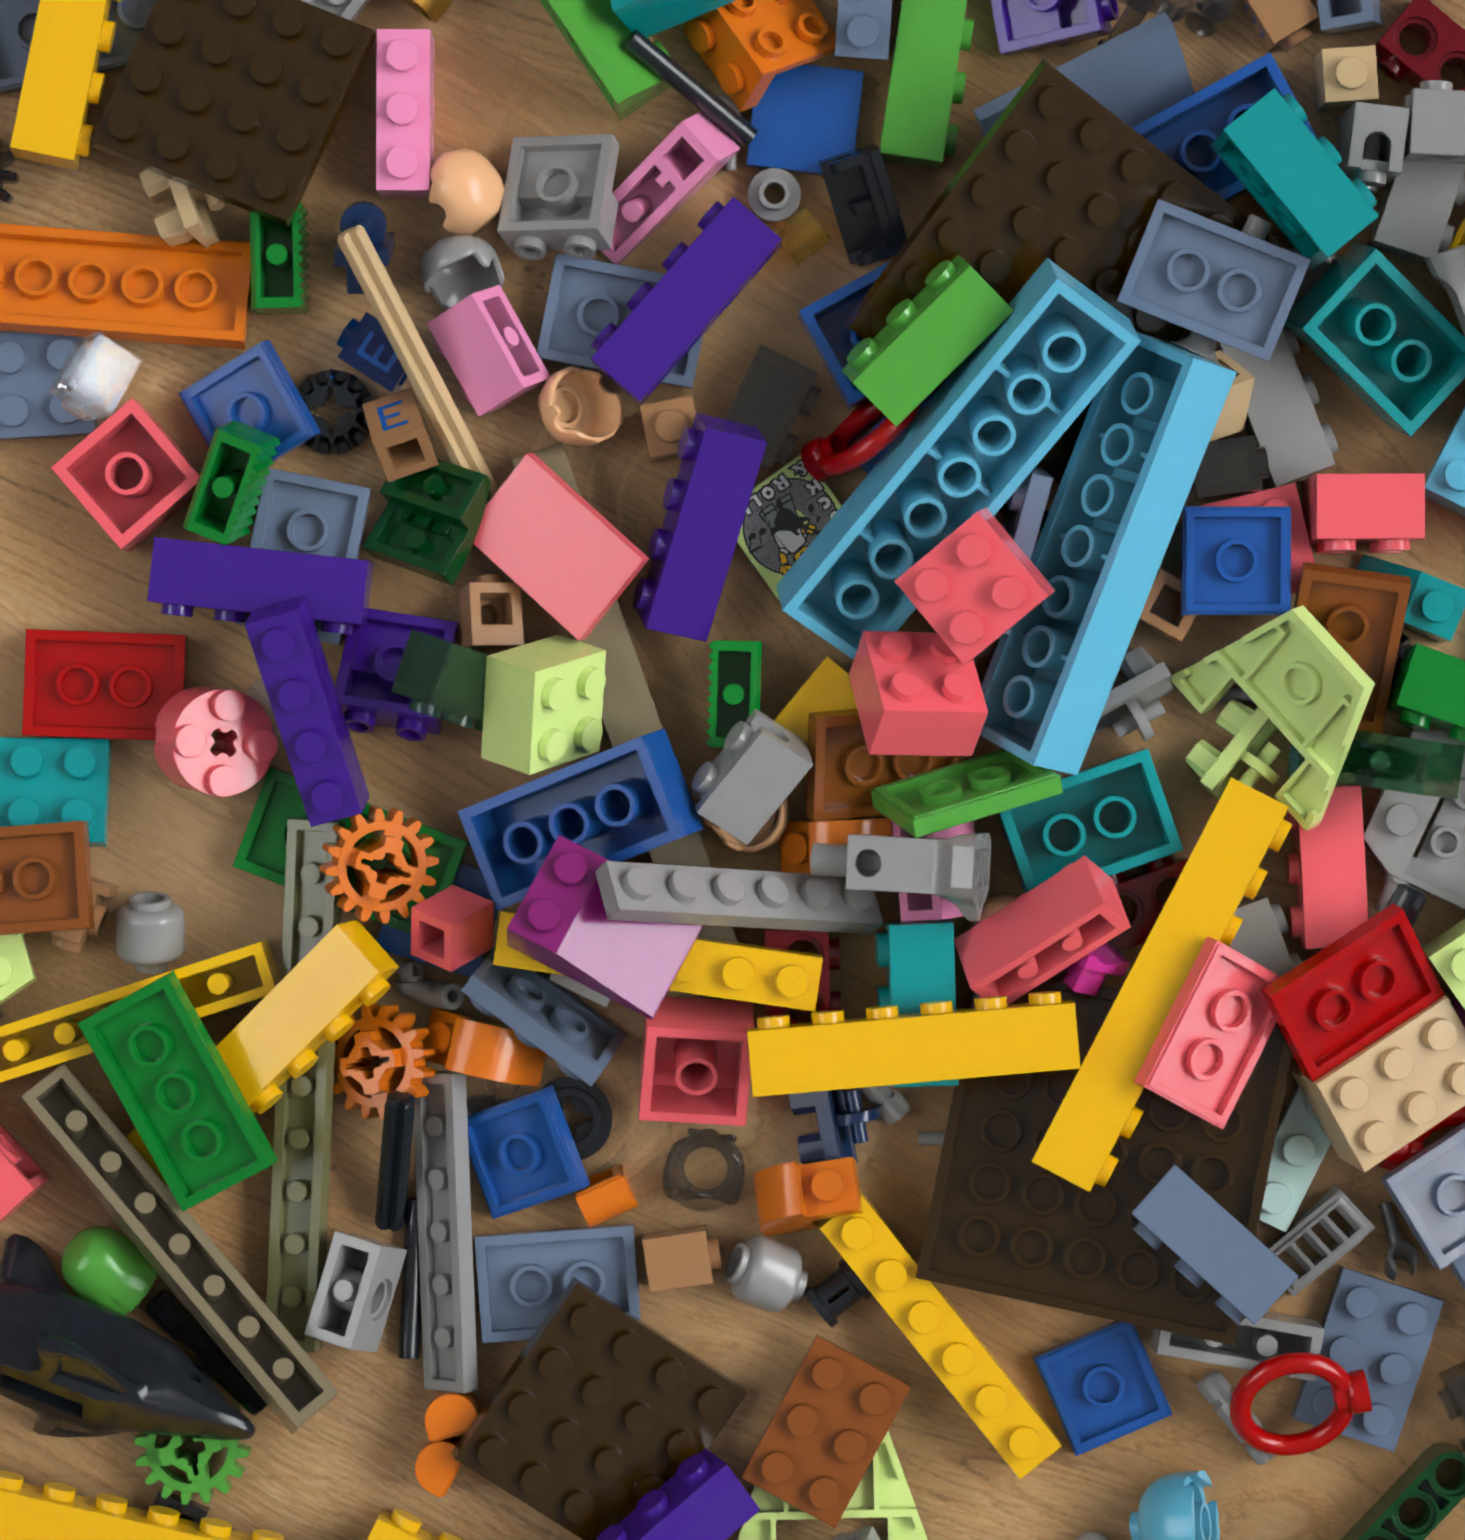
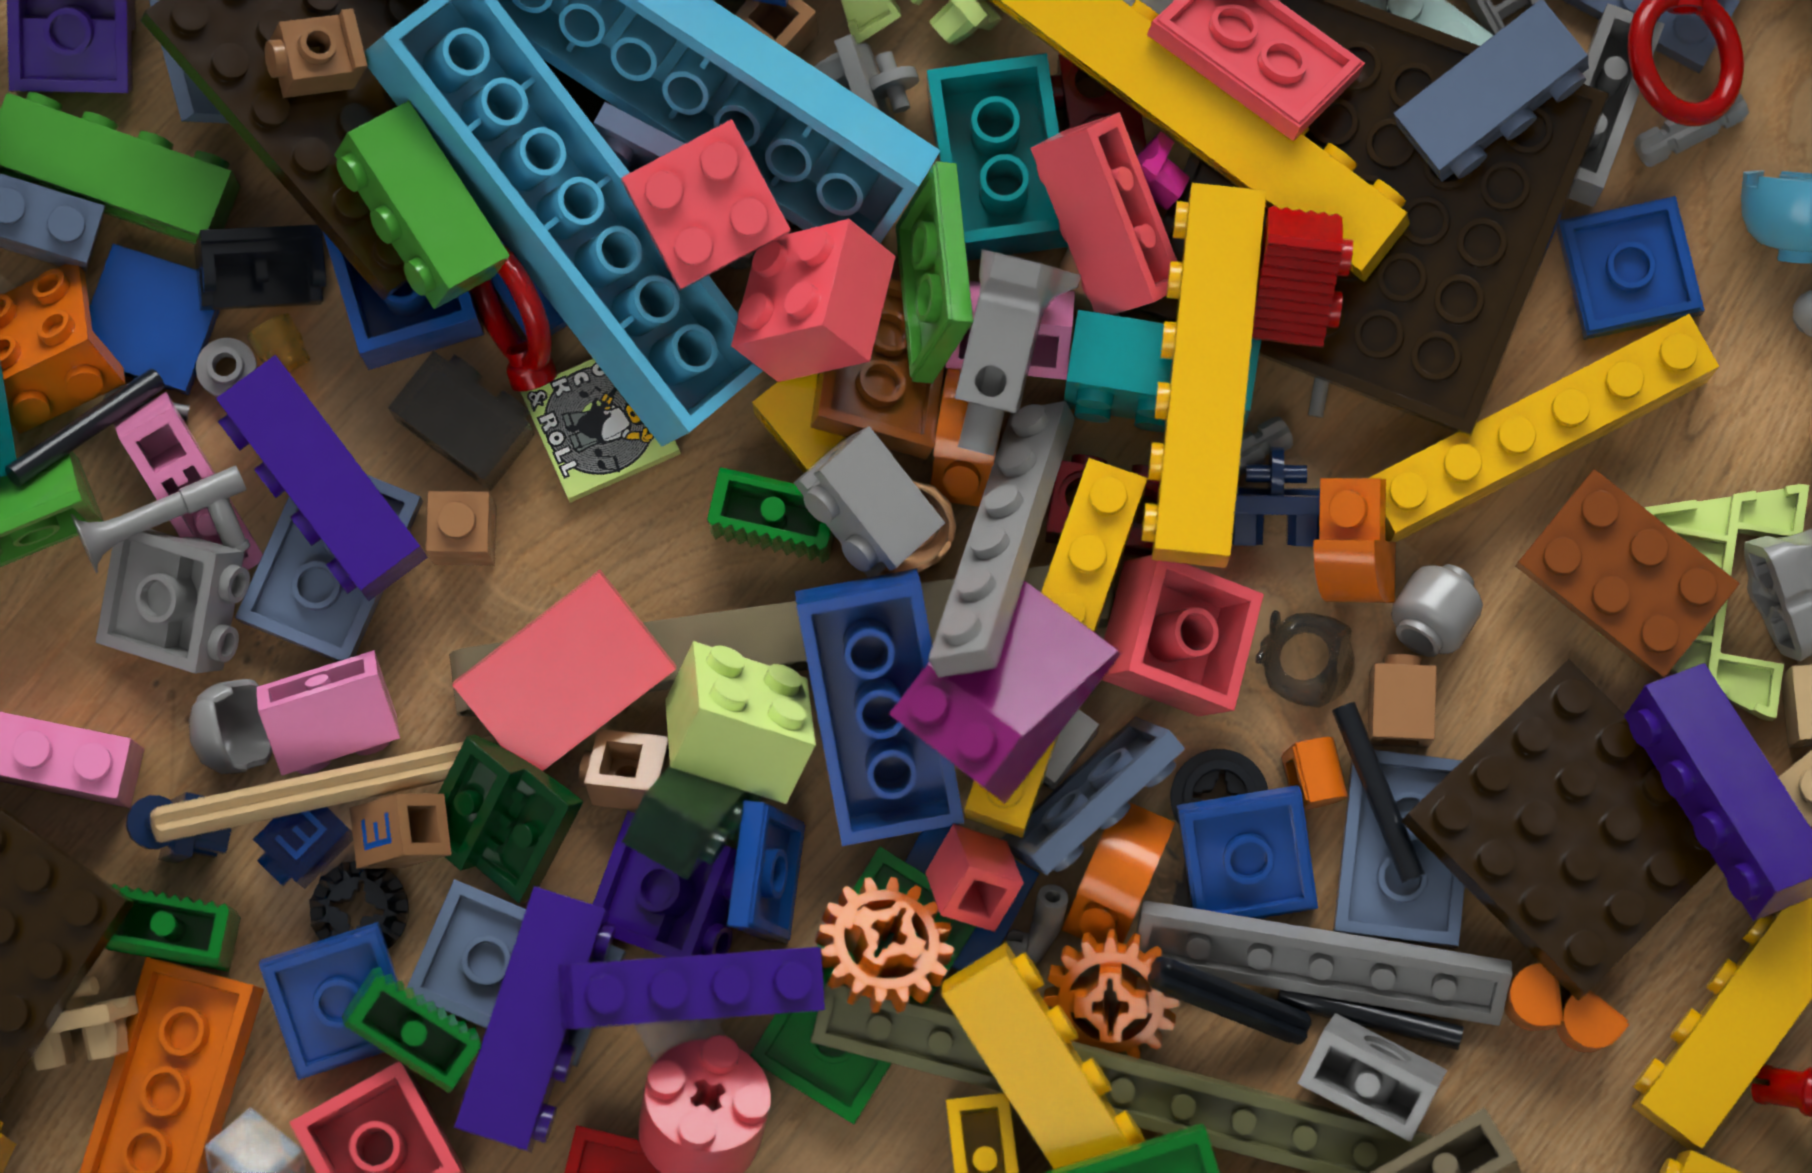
camera: 75 degrees left, 10 degrees down
(423, 751) = (766, 872): none -> blue tile
(466, 190) = (140, 698): light nougat hair -> none
(579, 408) = (416, 626): light nougat hair -> none
(596, 1253) = (1378, 792): none -> black bar
(654, 207) = (209, 492): none -> light grey piece
(700, 526) = (577, 510): dark purple brick -> none
(820, 1295) = (1472, 534): black bush -> none
(1015, 1109) = (1299, 275): none -> red brick
(1022, 207) = (309, 73): none -> medium nougat brick

